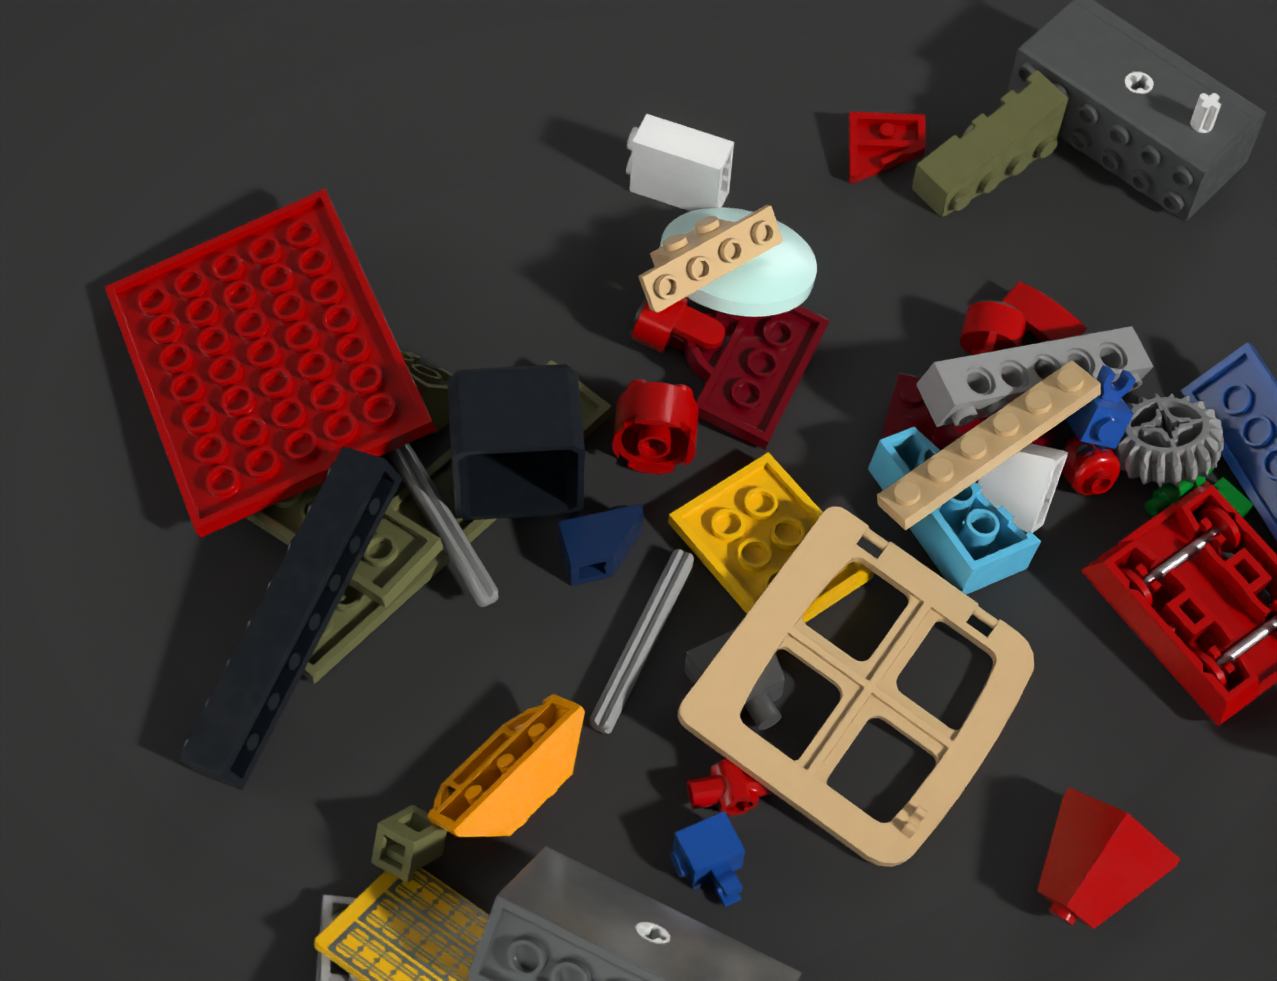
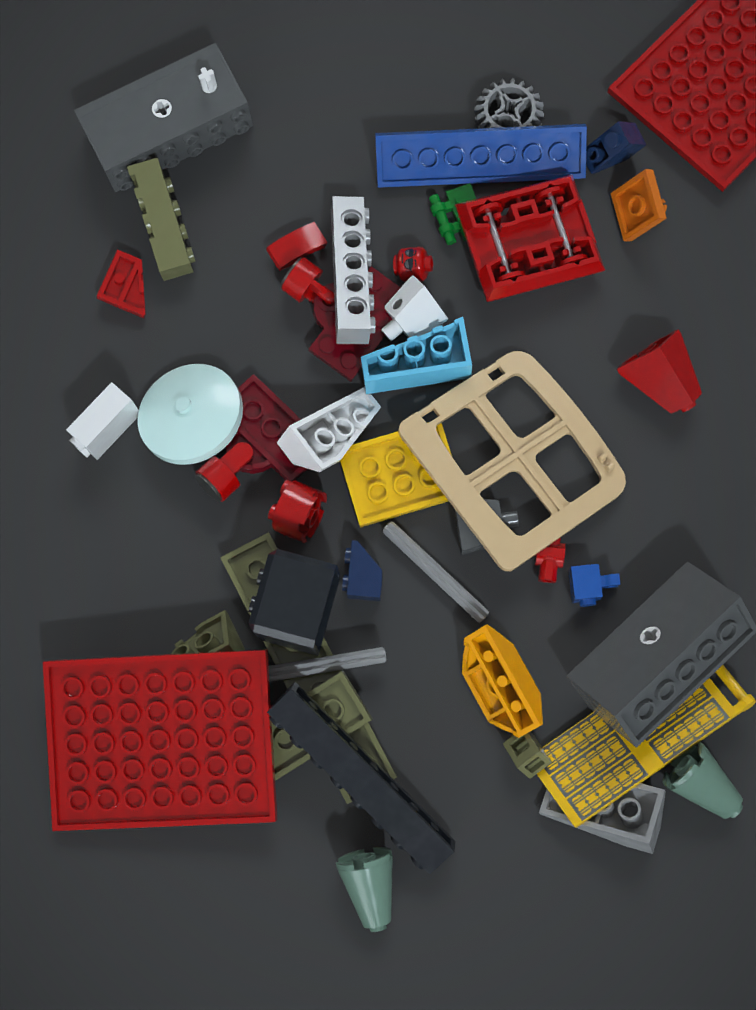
camera: 60 degrees left, 20 degrees up
(137, 686) = (369, 885): none -> sand green cone
(706, 254) = (193, 434): tan bracket -> none
(788, 424) = (328, 433): none -> white wedge
(988, 445) = (397, 319): tan plate -> none
(1107, 415) = (390, 244): blue brick -> none
(1170, 440) = (409, 200): light grey gear -> none

